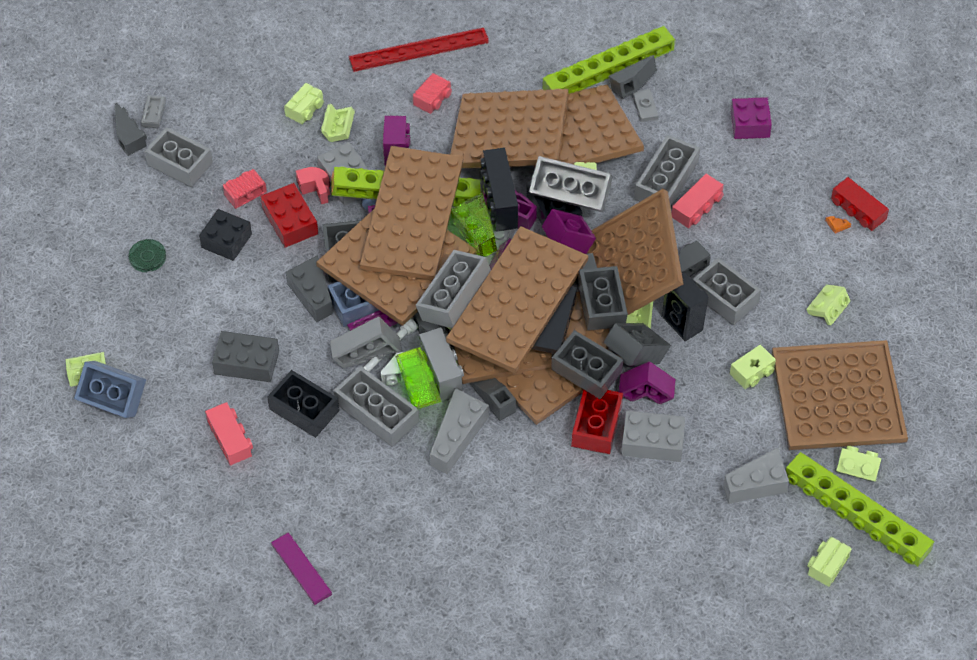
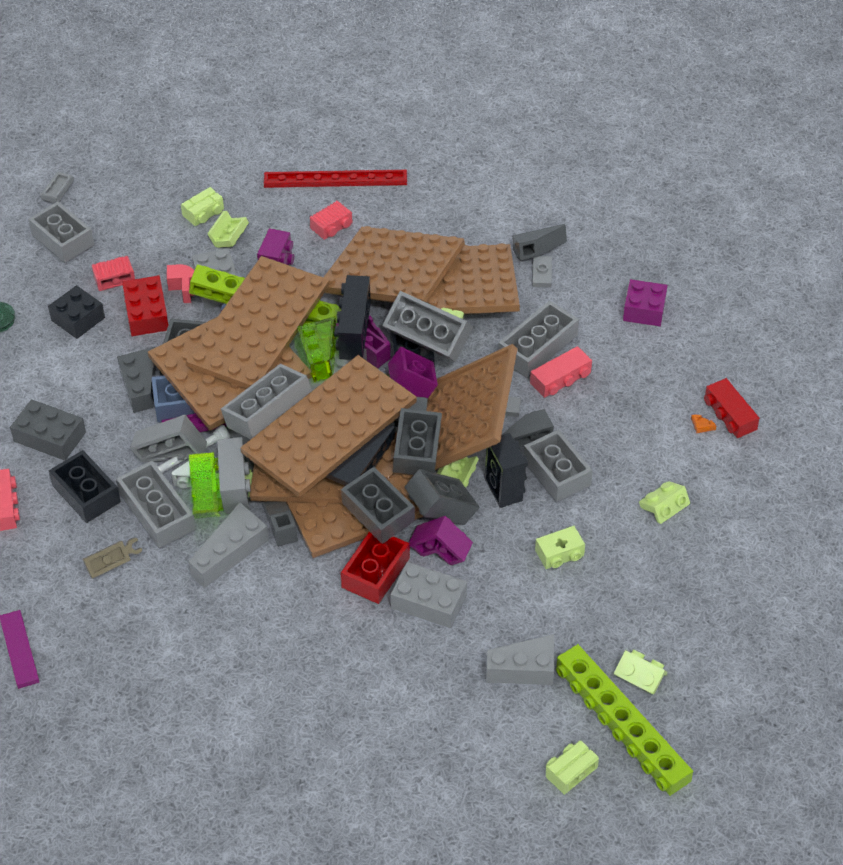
camera: 15 degrees right, 5 degrees down
(128, 134) = (23, 200): dark grey slope -> none
(352, 465) = (110, 557): none -> dark tan plate
(602, 65) = (502, 226): lime brick -> none
(839, 395) = (643, 596): medium nougat plate -> none

